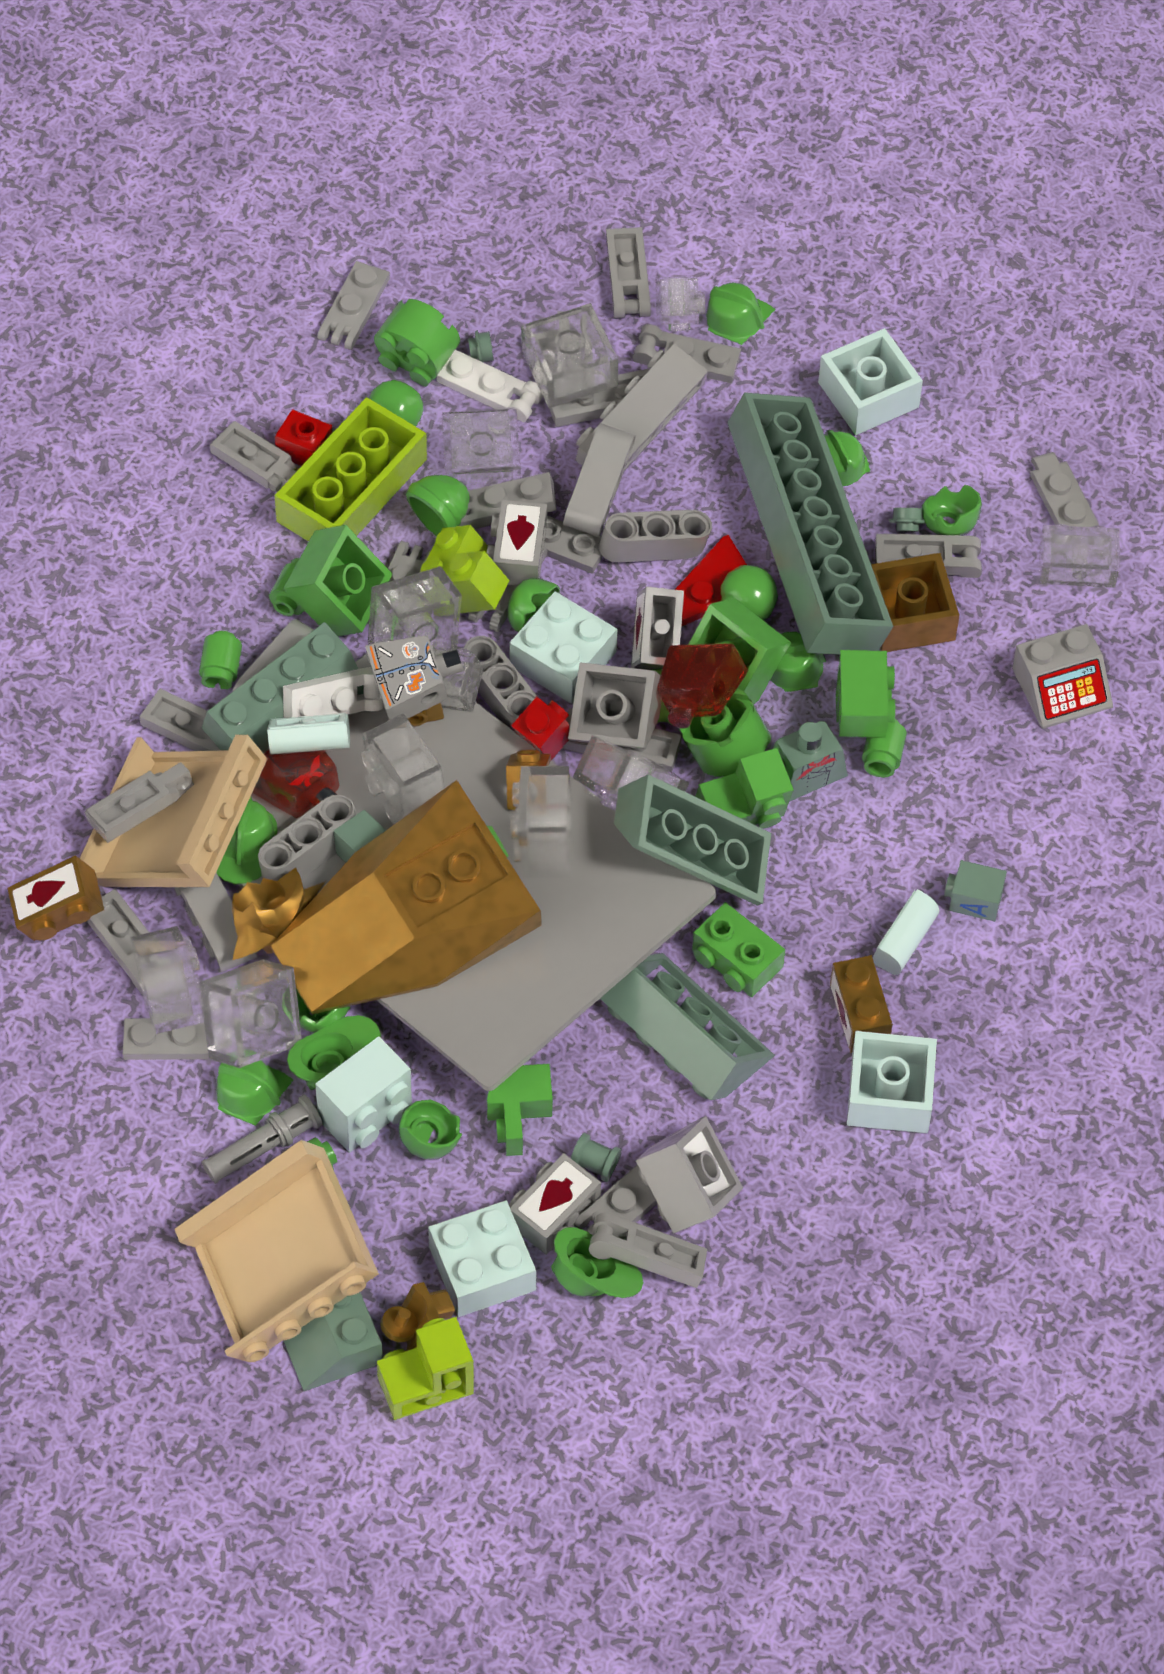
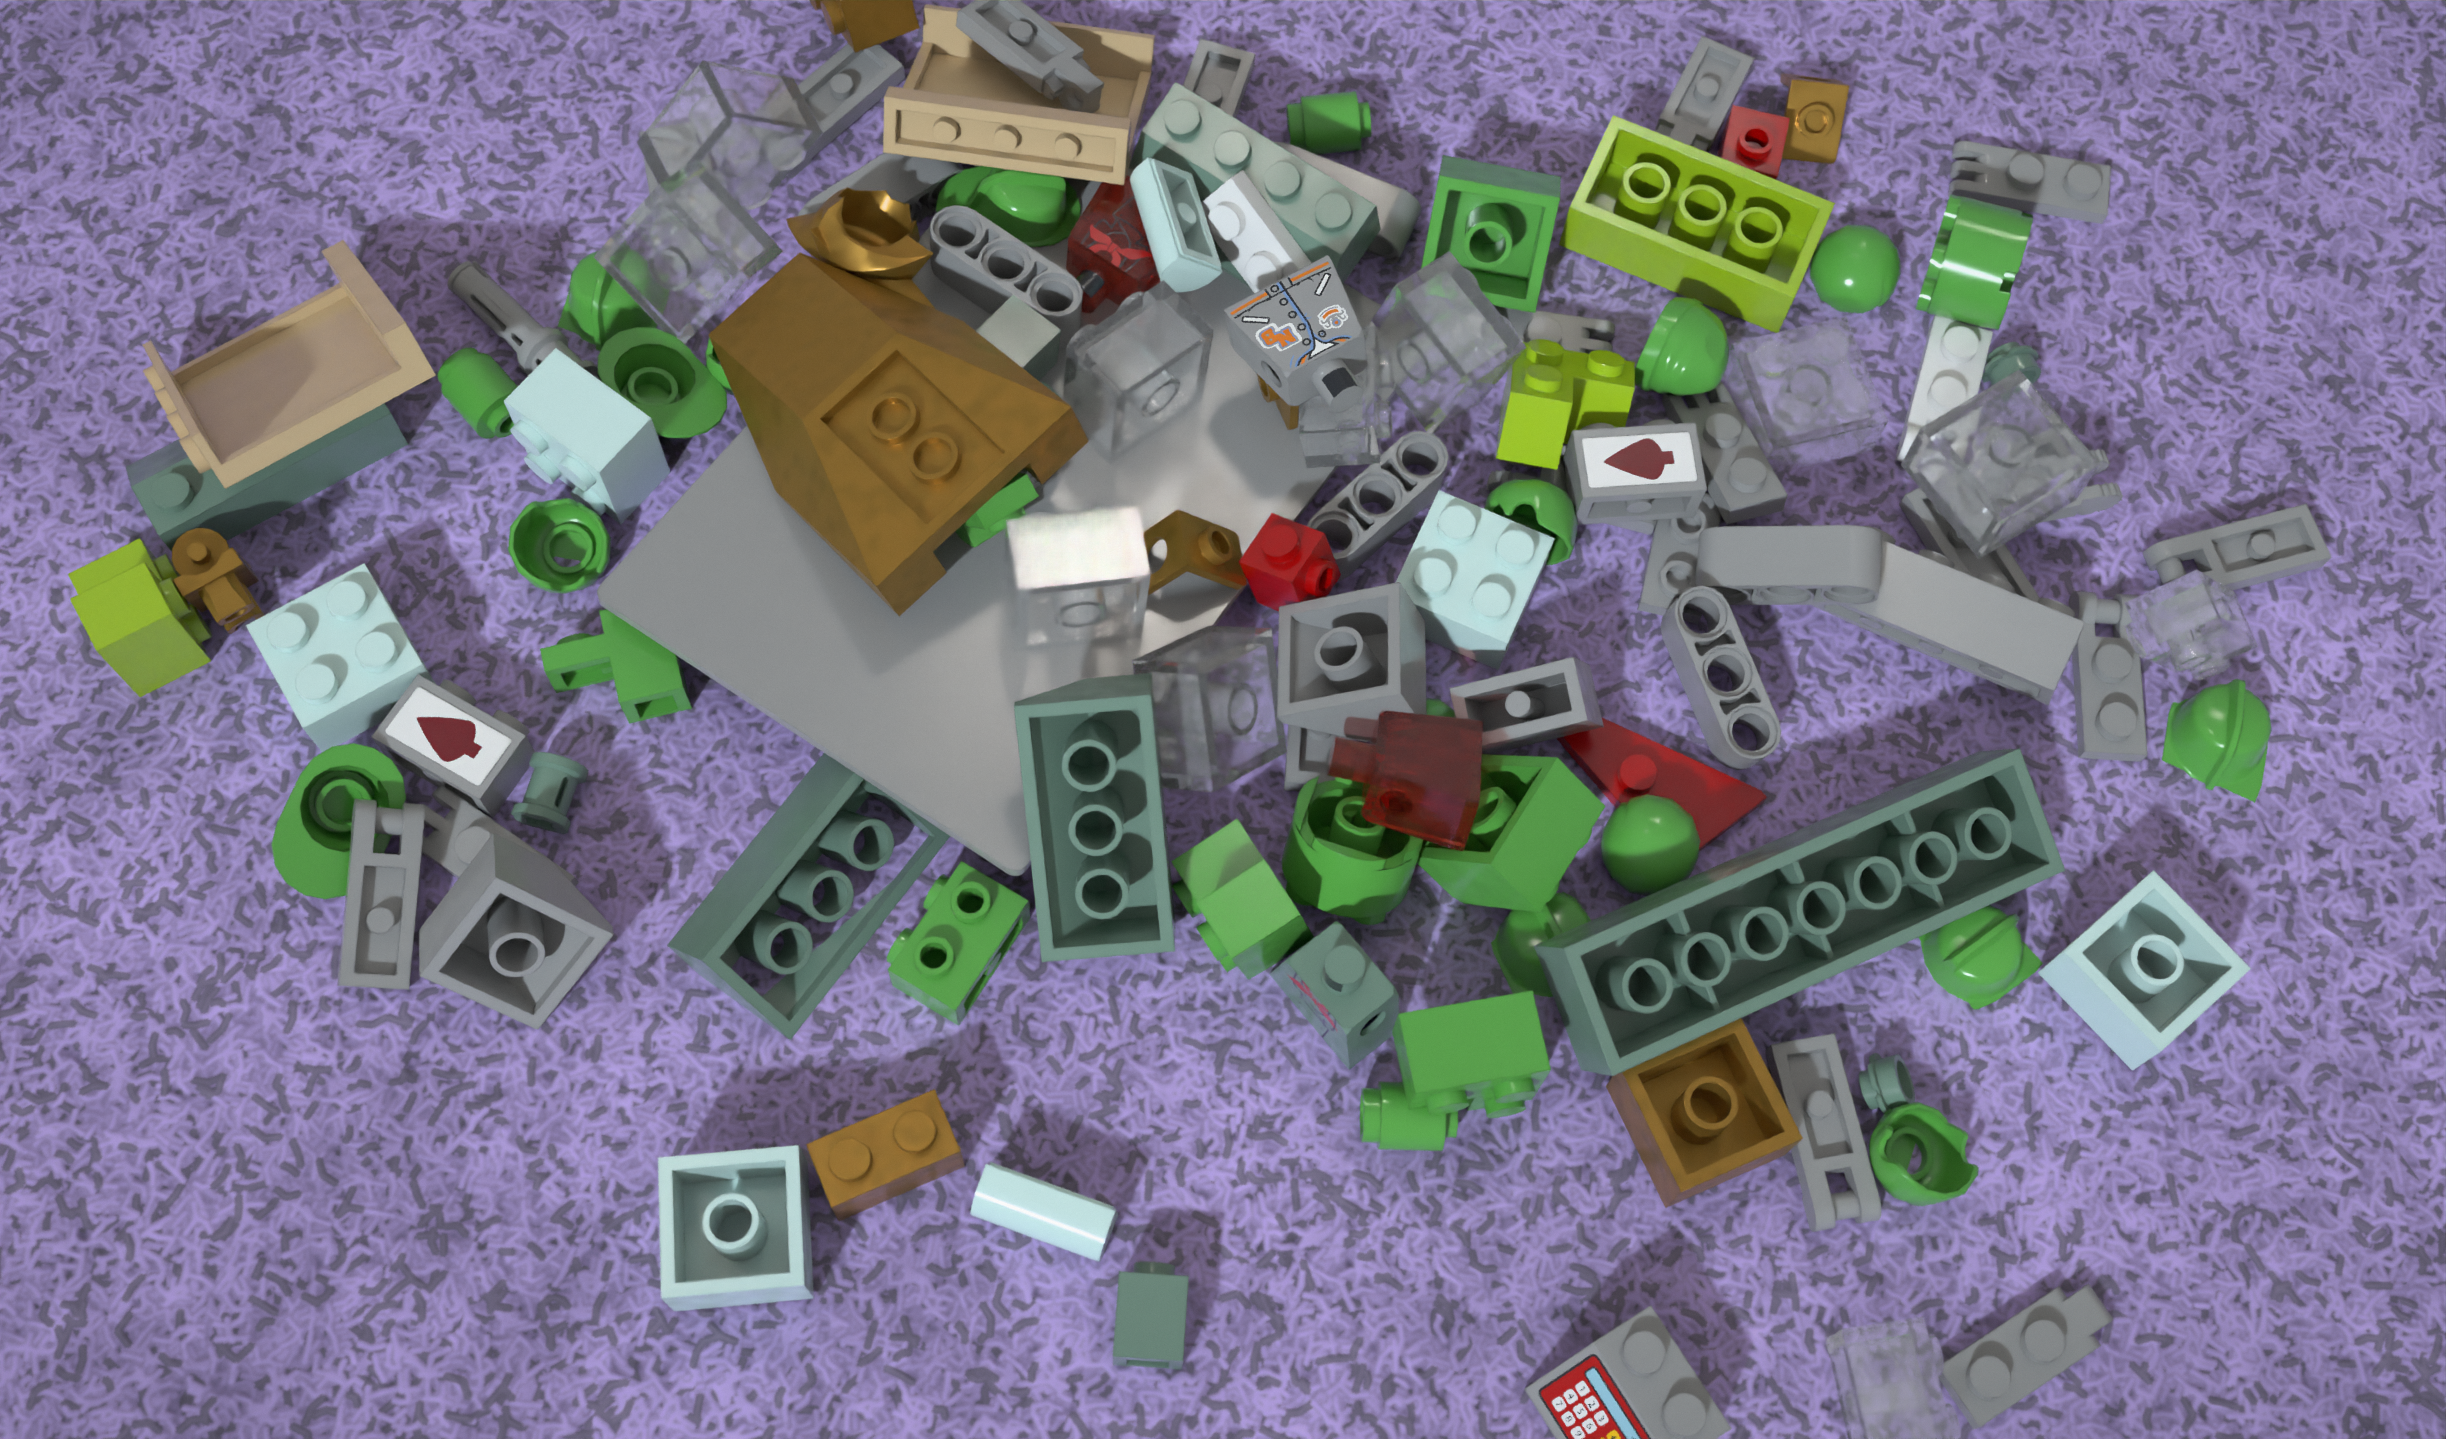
camera: 75 degrees right, 10 degrees up
(276, 396) = (1816, 117): none -> pearl gold bracket

